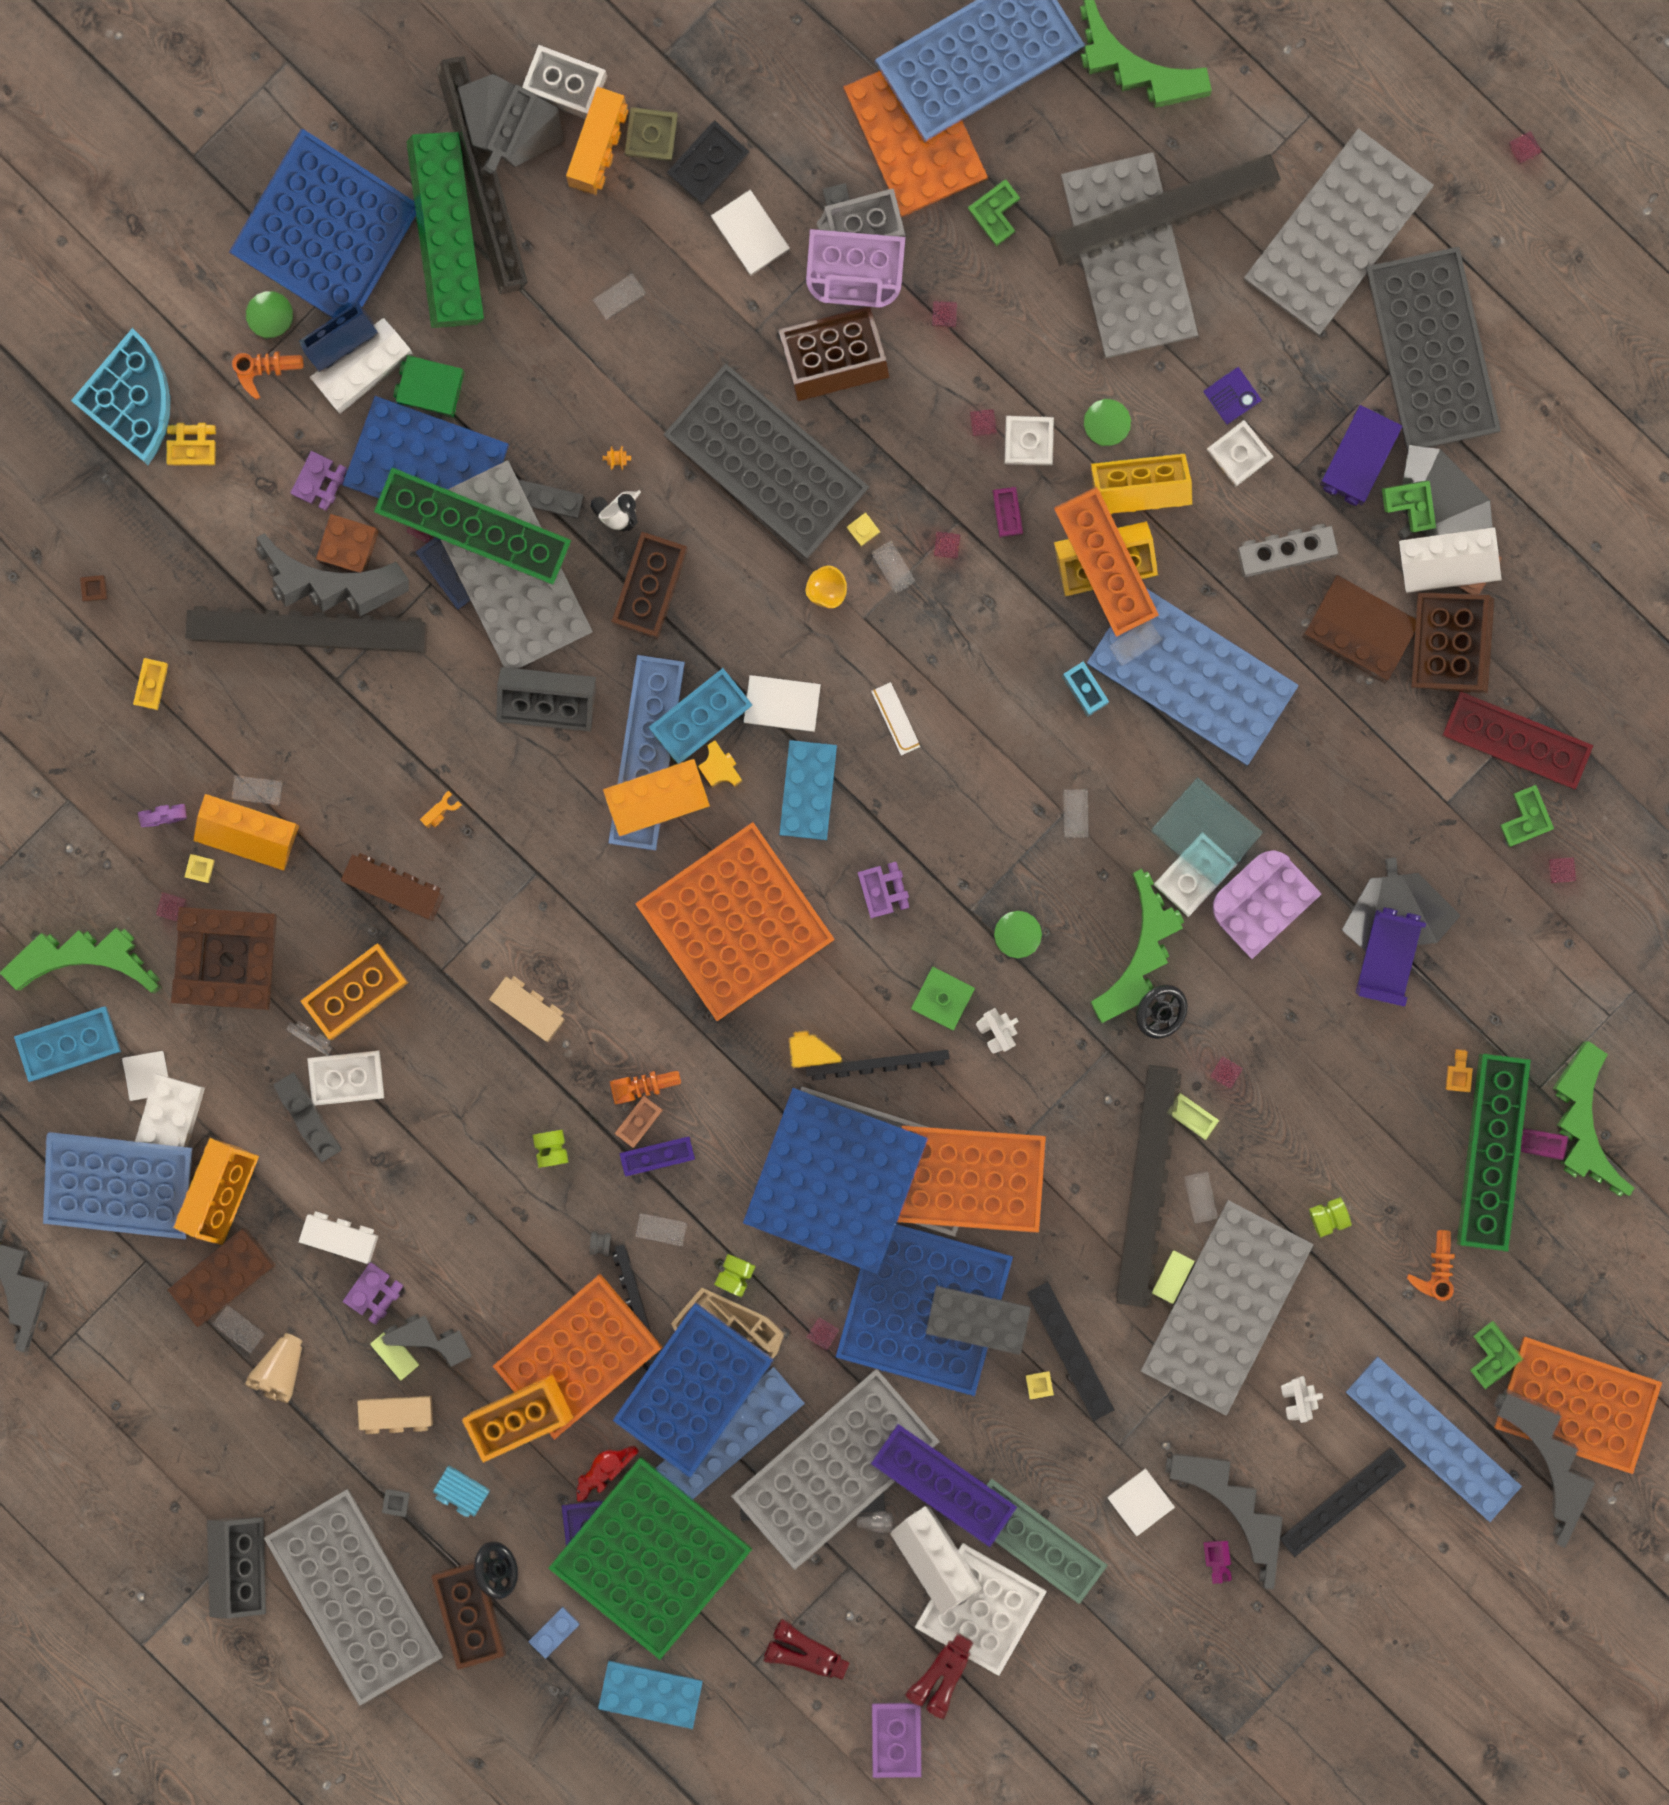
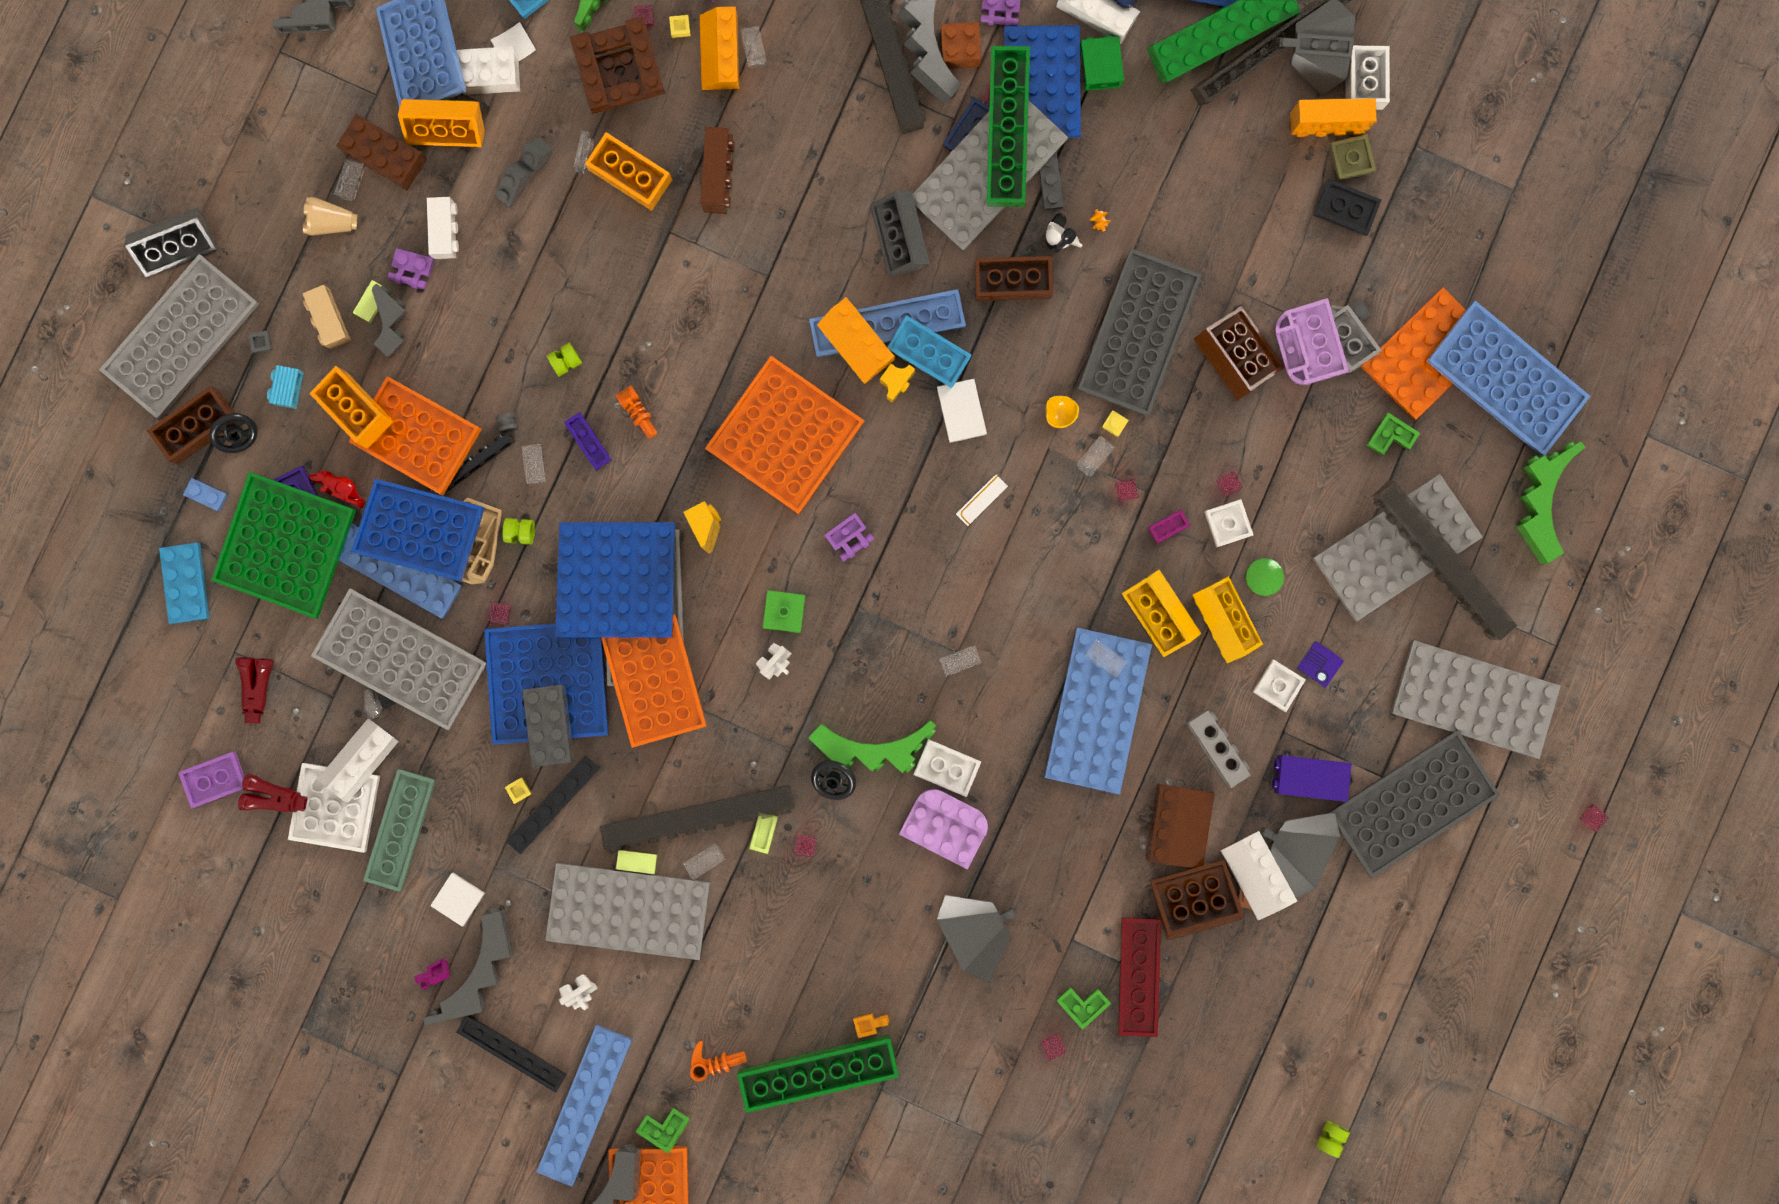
camera: 60 degrees right, 0 degrees up
(345, 1078) = (564, 190): white tile -> none
(434, 815) = (782, 183): light orange plate -> none
(528, 1008) = (663, 304): tan brick -> none
(619, 297) = (1221, 178): clear plate -> none
(638, 1121) = (608, 418): nougat plate -> none
(750, 232) = (1306, 258): white tile -> none
(808, 790) = (903, 454): dark azure plate -> none
(887, 1063) = (719, 588): black plate -> none
(943, 1485) = (414, 745): dark purple plate -> none
(944, 314) = (1300, 424): clear pink plate -> none
(1018, 934) = (852, 650): bright green dish -> none
(1085, 689) = (1057, 633): medium azure brick -> none
(1106, 561) = (1160, 612): orange plate -> none
(1207, 831) = (982, 765): clear light blue piece -> none
(1330, 1217) = (723, 965): lime wheel -> none
(1389, 956) = (938, 938): dark purple panel -> none
(1416, 499) = (1295, 831): bright green plate -> none
(1544, 1144) = (839, 1110): magenta plate -> none
(1585, 1154) = (843, 1143): bright green arch -> none

